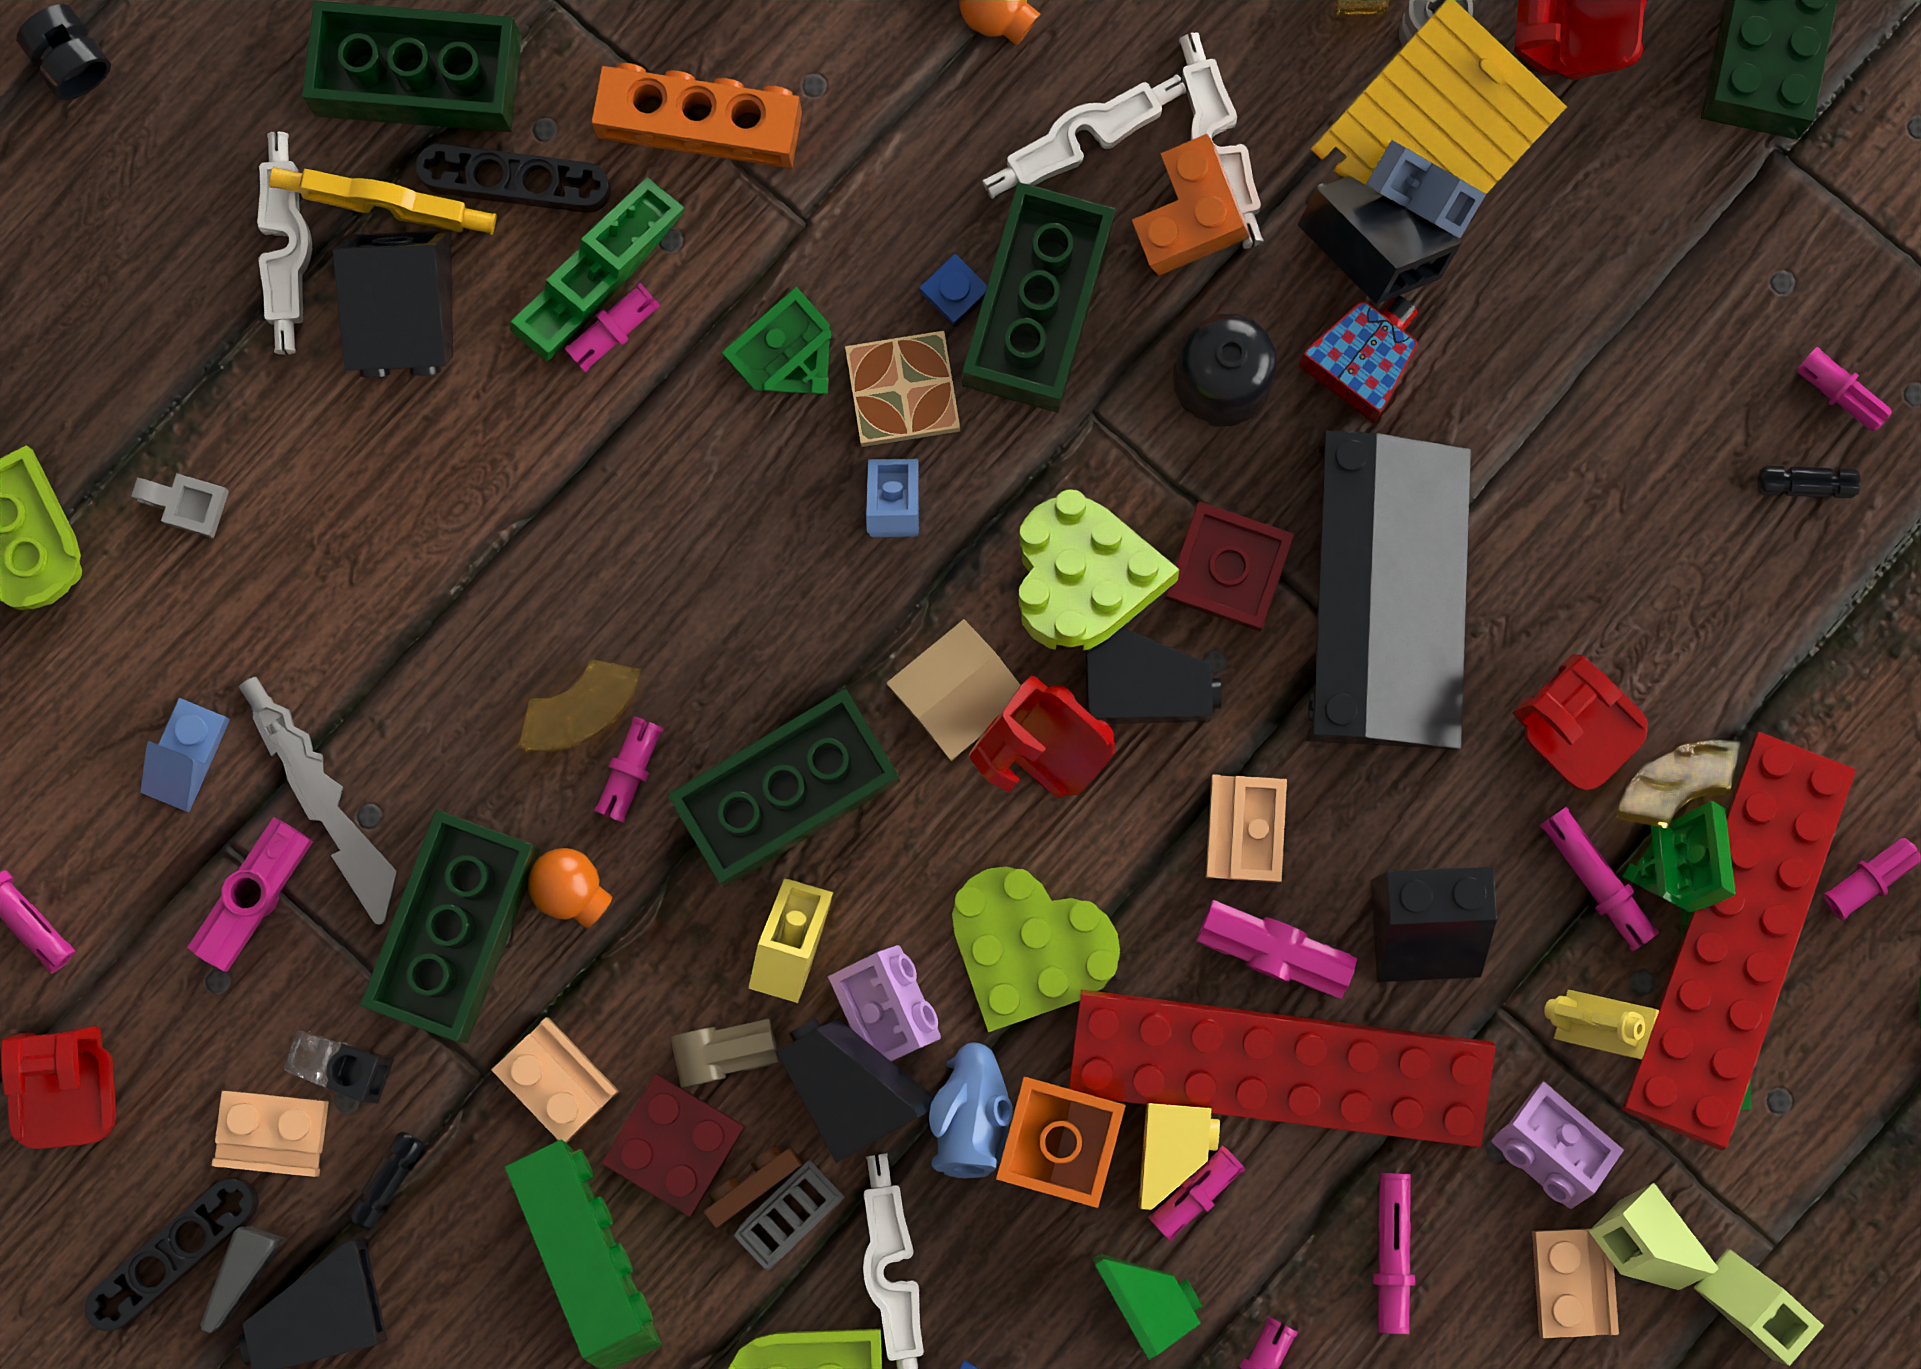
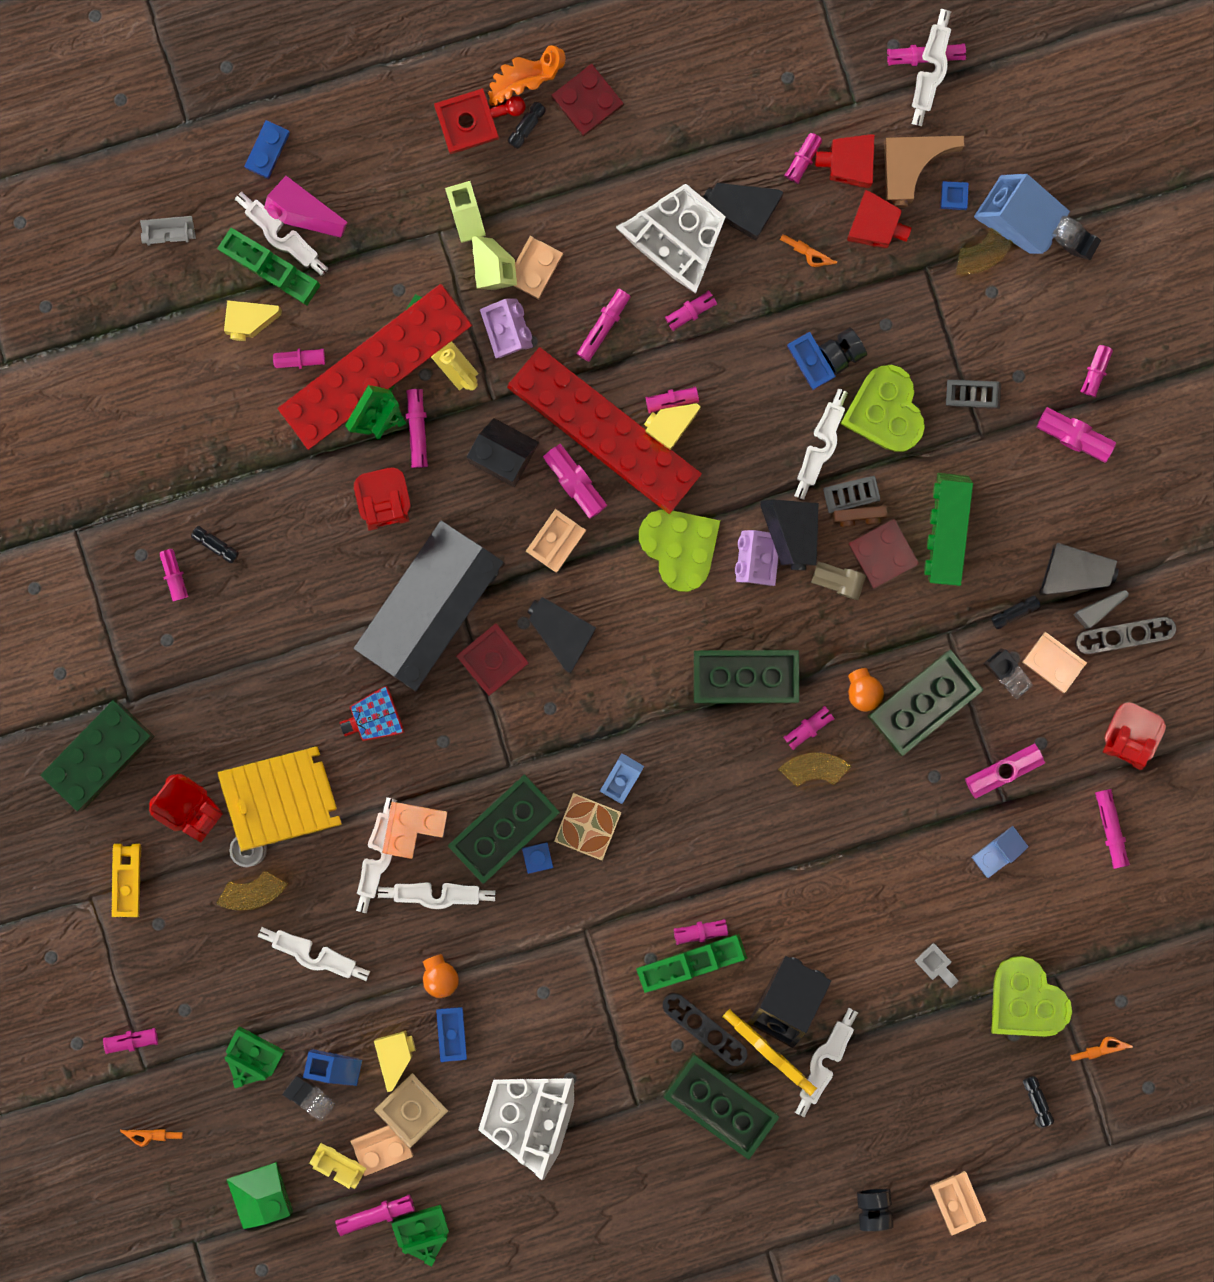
camera: 150 degrees left, 5 degrees up
(319, 796) = (950, 798): light grey sword -> none
(555, 1080) = (918, 611): light nougat plate -> none
(767, 143) = (629, 1040): orange brick -> none
(784, 349) = (629, 876): green slope -> none
(790, 940) = (781, 610): light yellow slope -> none
(955, 689) = (644, 677): tan slope -> none
(971, 1115) = (748, 489): medium blue animal -> none
(1048, 738) = (619, 631): red piece -> none
(1060, 1142) = (717, 454): orange slope -> none
(1085, 572) = (557, 693): lime plate -> none
(1150, 1301) = (720, 366): green slope -> none
(1225, 370) = (441, 747): black cylinder -> none
(1376, 239) = (338, 765): black slope -> none
(1425, 189) = (302, 773): sand blue slope -> none
(1676, 779) = (356, 450): clear yellow tile -> none

